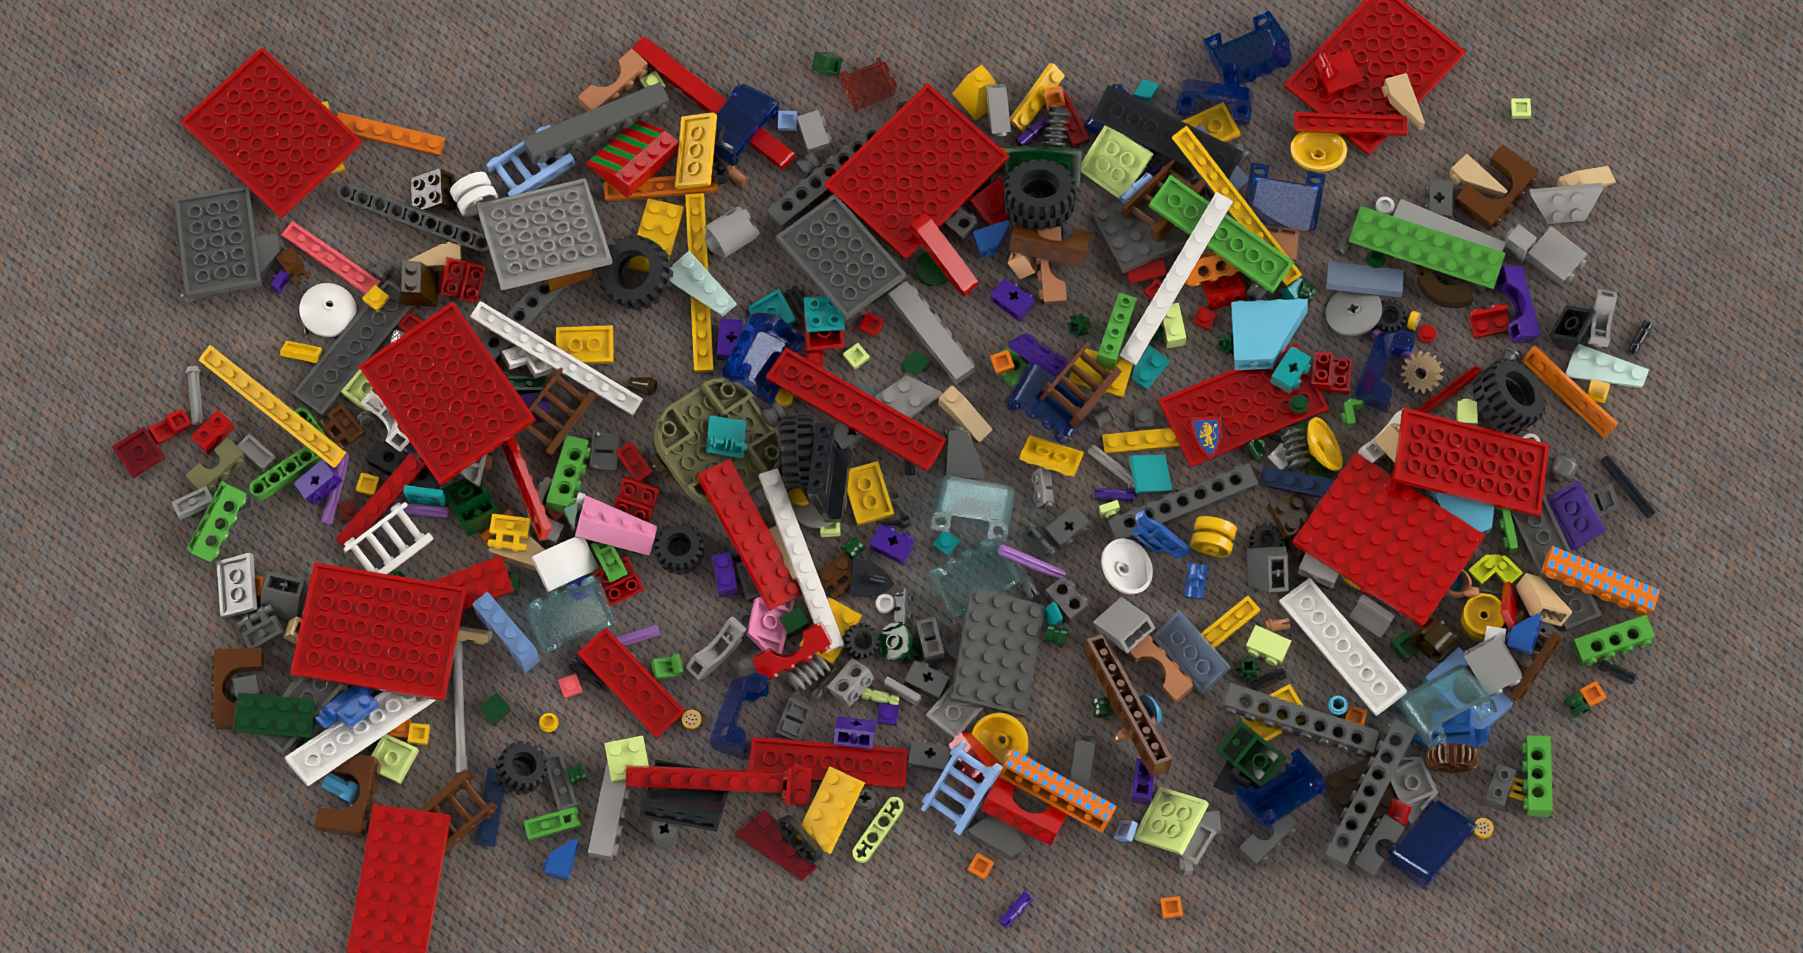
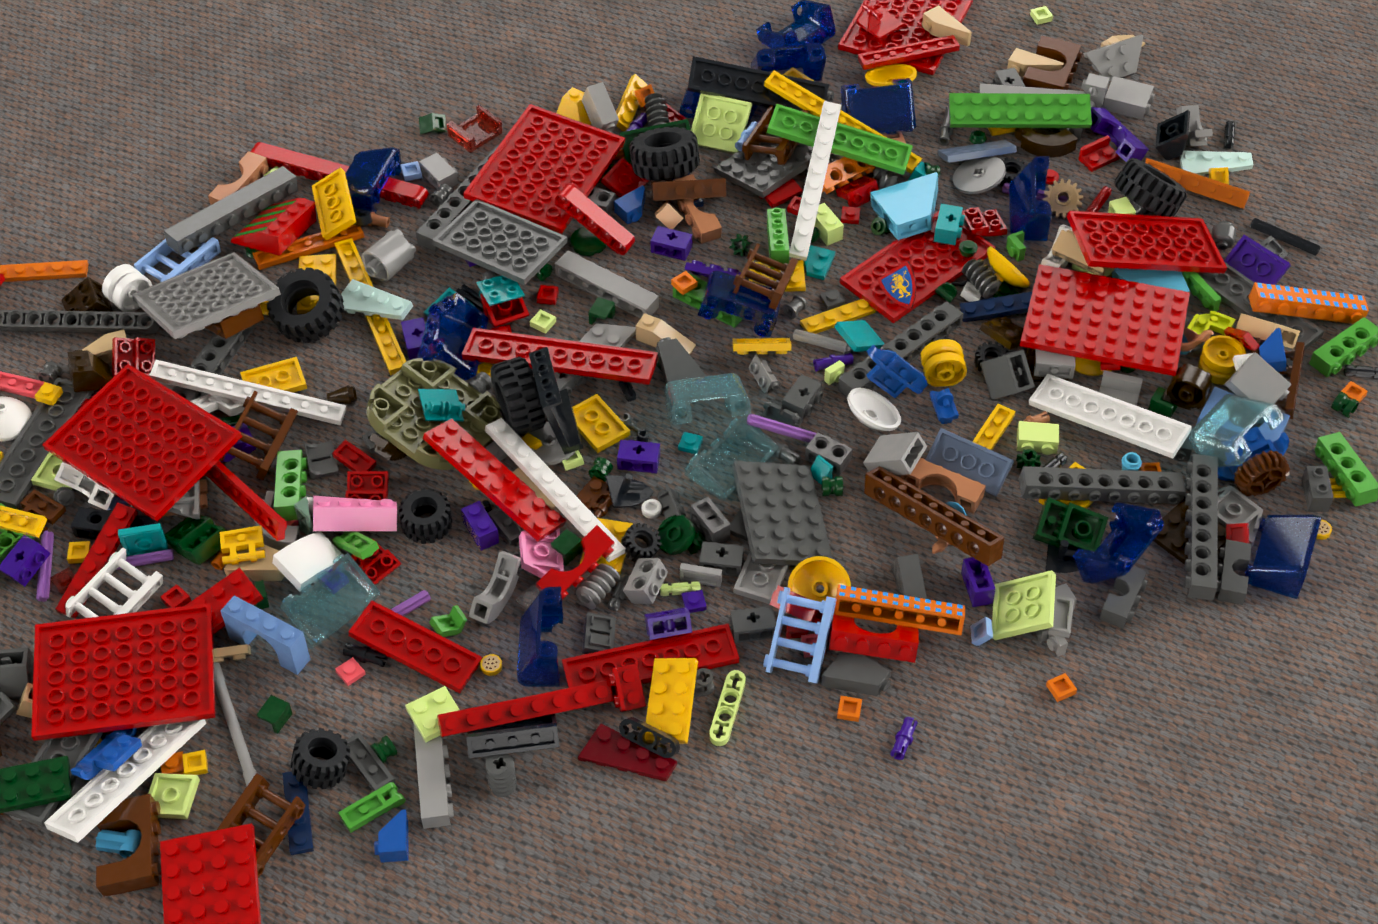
camera: 20 degrees left, 20 degrees down
(440, 562) = (175, 597): none -> red plate
(548, 722) = (337, 711): yellow plate -> none
(1101, 707) = (905, 532): dark green wheel -> none

